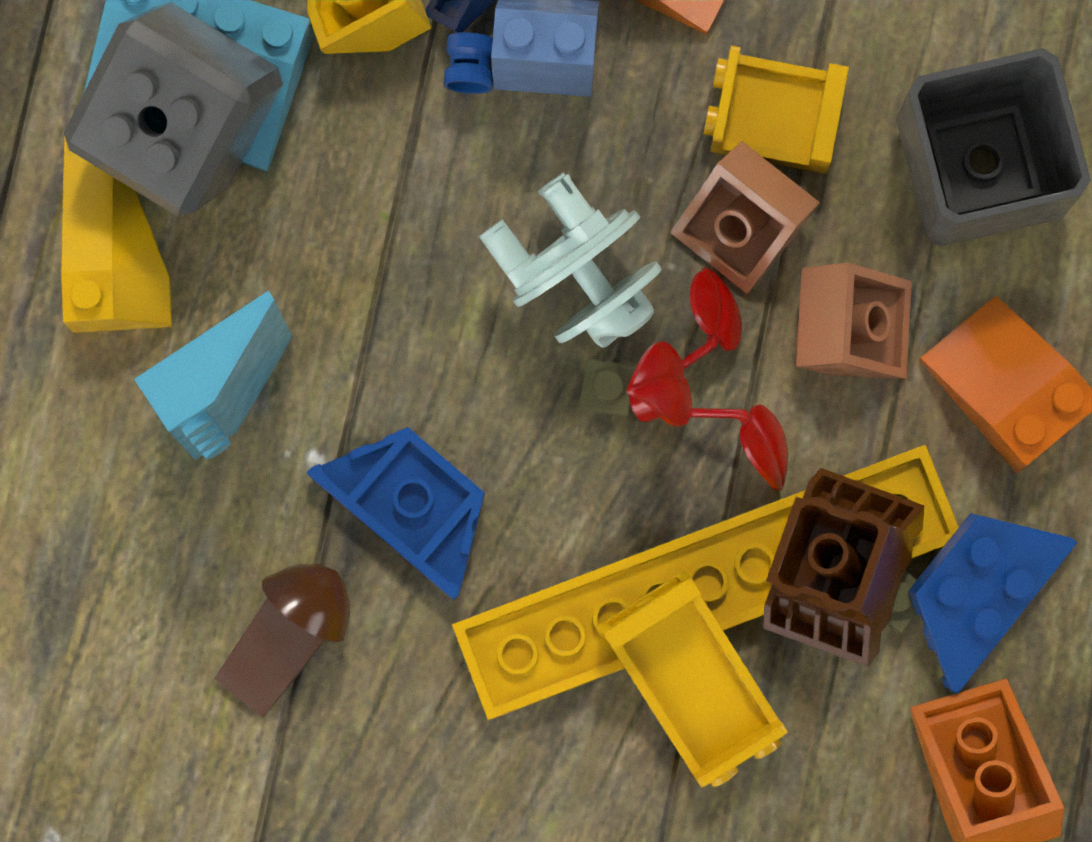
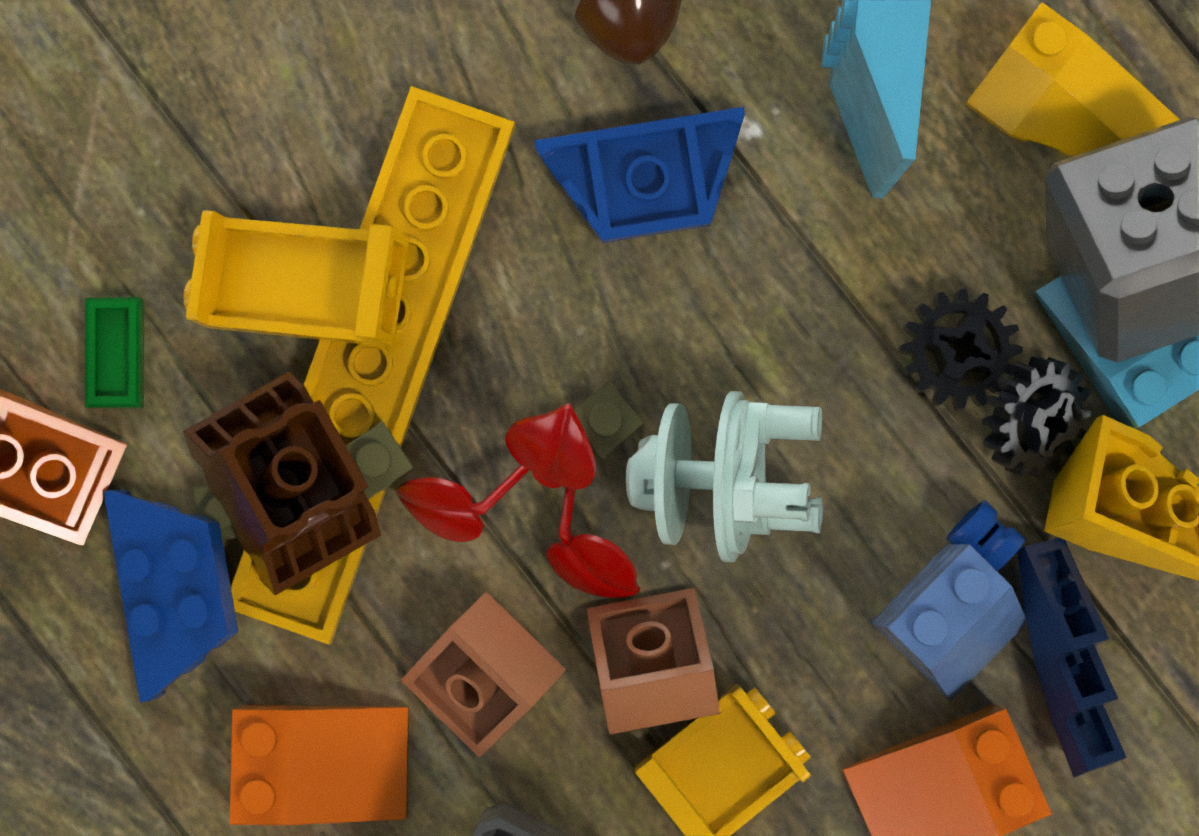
camera: 130 degrees right, 5 degrees up
(334, 189) = (936, 339): none -> black gear
(358, 94) = (1036, 416): none -> black gear
(767, 515) = (379, 459): none -> olive plate
(854, 773) = (114, 353): none -> green tile

